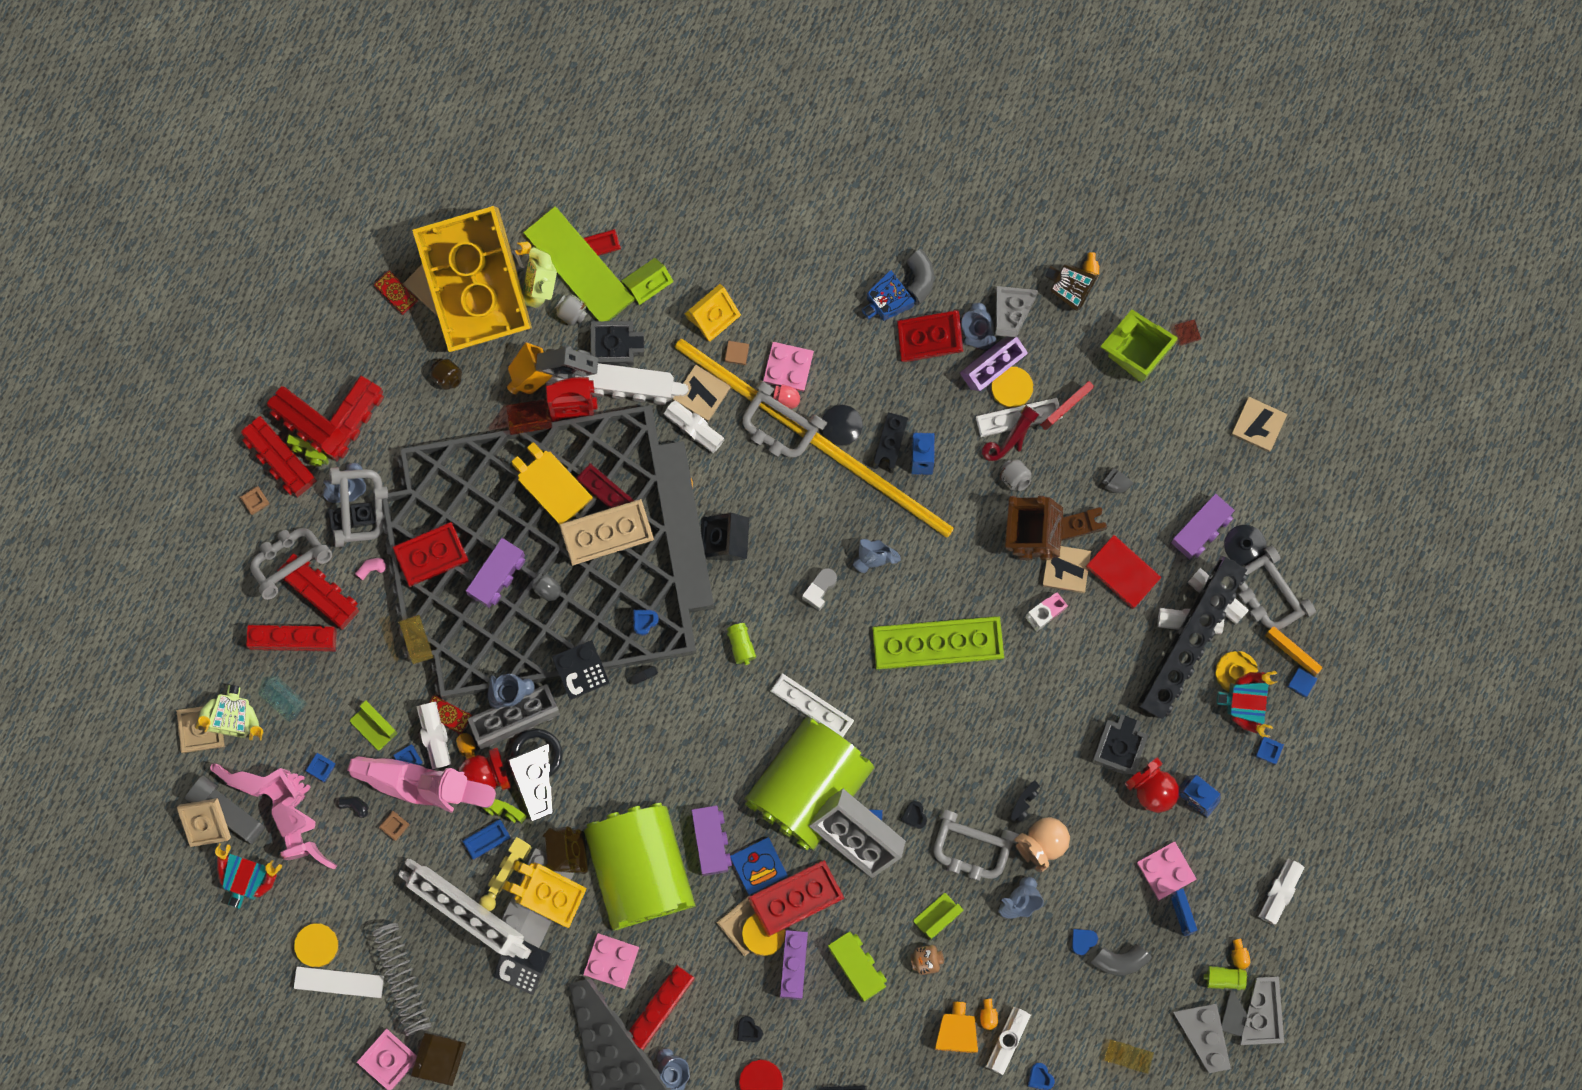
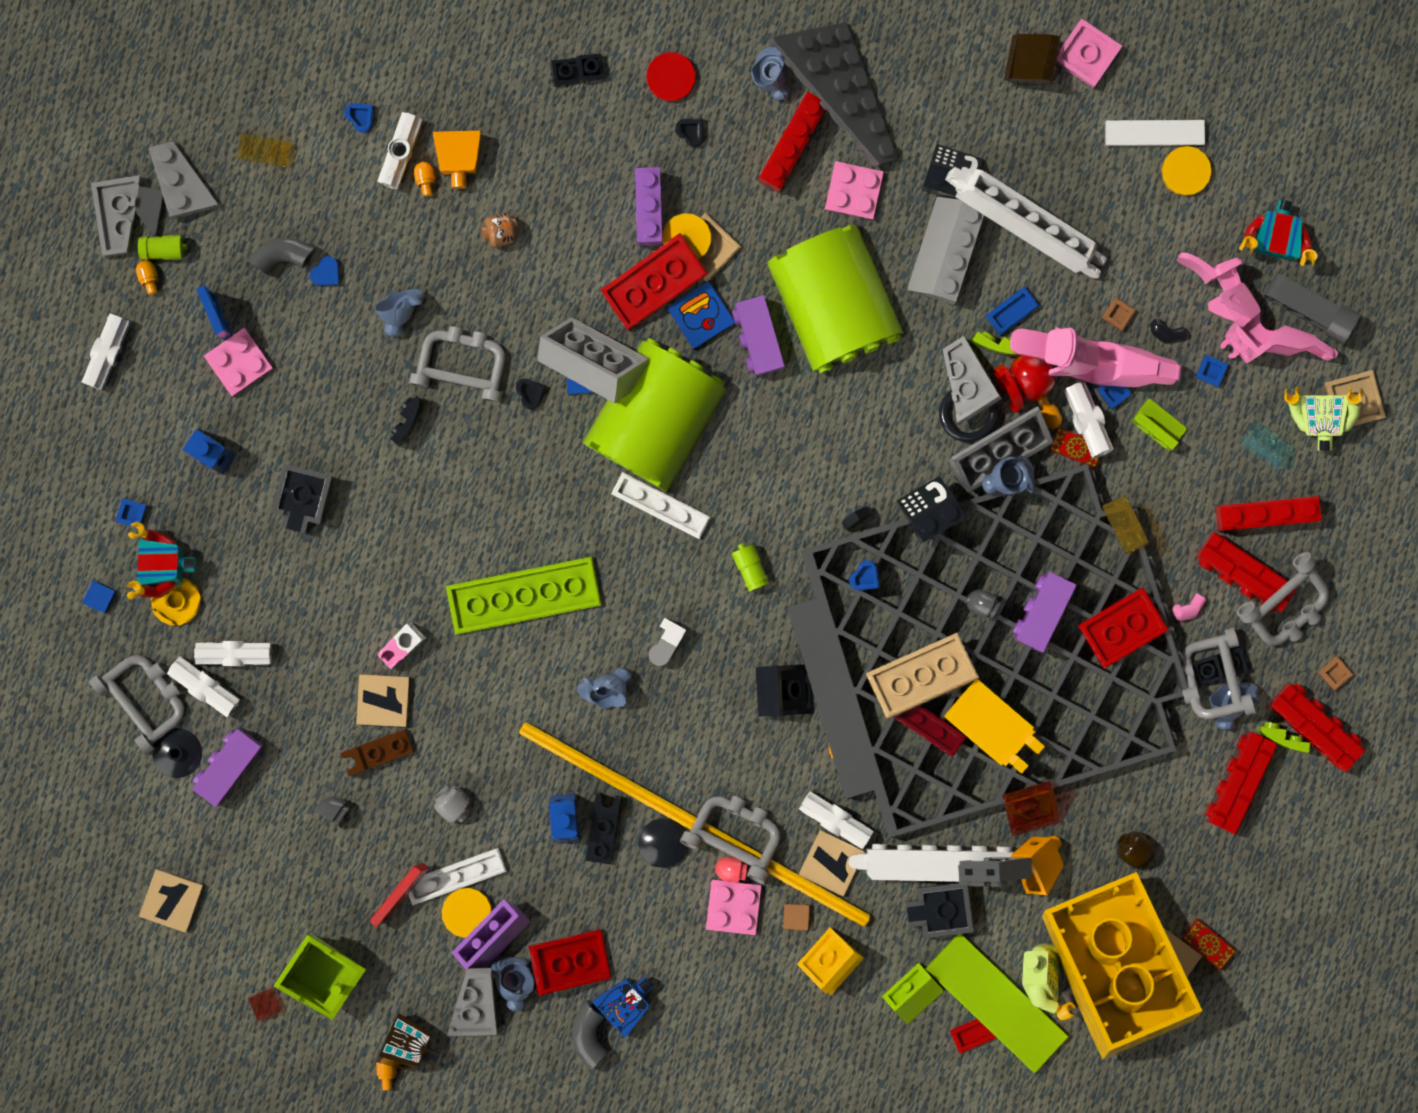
camera: 175 degrees right, 10 degrees up
(203, 822) = (1334, 289): tan tile -> none
(305, 420) = (1292, 771): red brick -> none
(394, 926) = (1067, 86): light grey piece -> none
(518, 850) = (974, 299): light yellow plate -> none
(546, 893) = (937, 252): yellow tile -> none
(566, 850) = (920, 303): dark brown slope -> none
(571, 309) = (998, 945): light grey head -> none
(571, 398) = (984, 828): red piece -> none
(857, 966) = (576, 214): lime brick -> none
(938, 916) = (492, 281): lime panel -> none
(1016, 435) = (444, 876): dark red plant -> none
(1034, 527) = (424, 745): reddish brown container -> none
(1045, 841) = (378, 376): light nougat tile -> none
(1123, 571) = (316, 703): red tile -> none
(1155, 788) = (258, 451): red tile -> none
(1202, 605) = (231, 642): black brick -> none
(1294, 651) = (110, 631): light orange tile -> none

